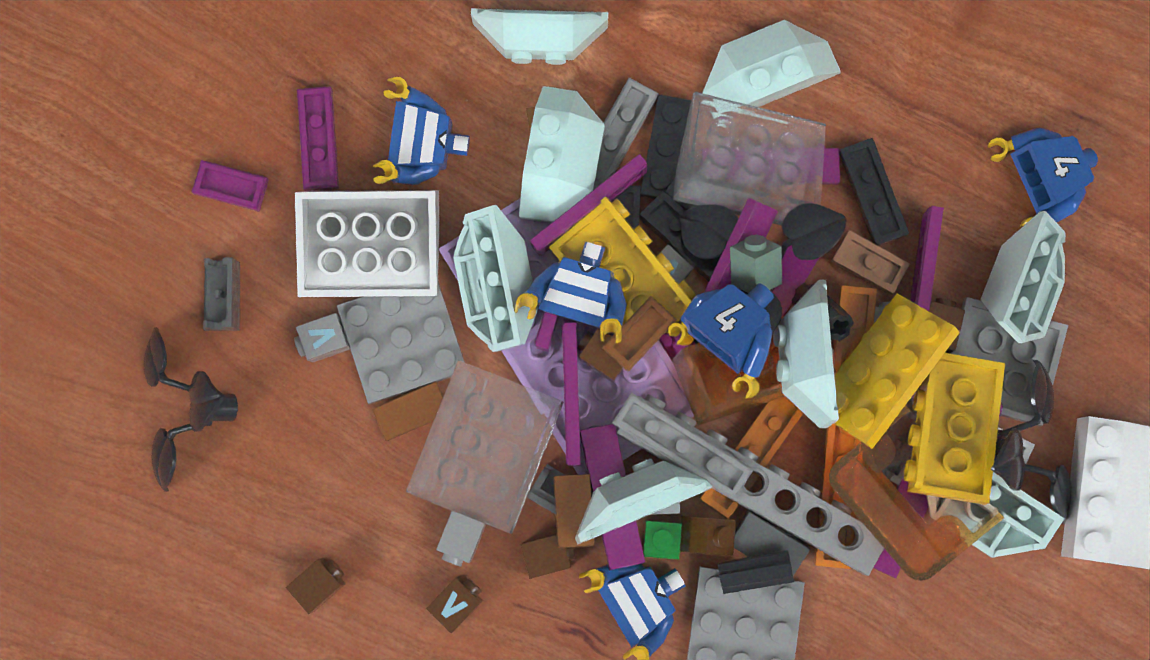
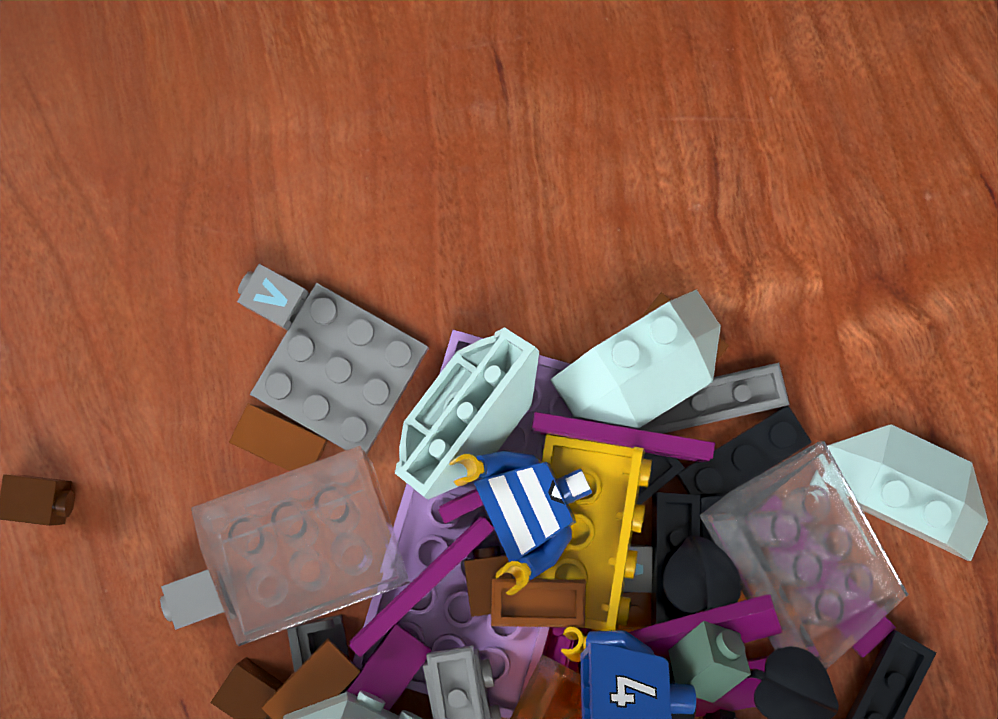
camera: 45 degrees right, 0 degrees up
(205, 407) = (103, 243): black plant -> none
(222, 295) = (234, 169): dark grey hinge -> none
(230, 185) = (343, 85): magenta tile -> none
(317, 139) = (458, 126): magenta tile -> none
(367, 243) = (398, 258): white slope -> none
(418, 138) = (541, 218): torso -> none
(455, 603) = (129, 648): reddish brown brick -> none
(539, 34) = (743, 241): light aqua wedge -> none

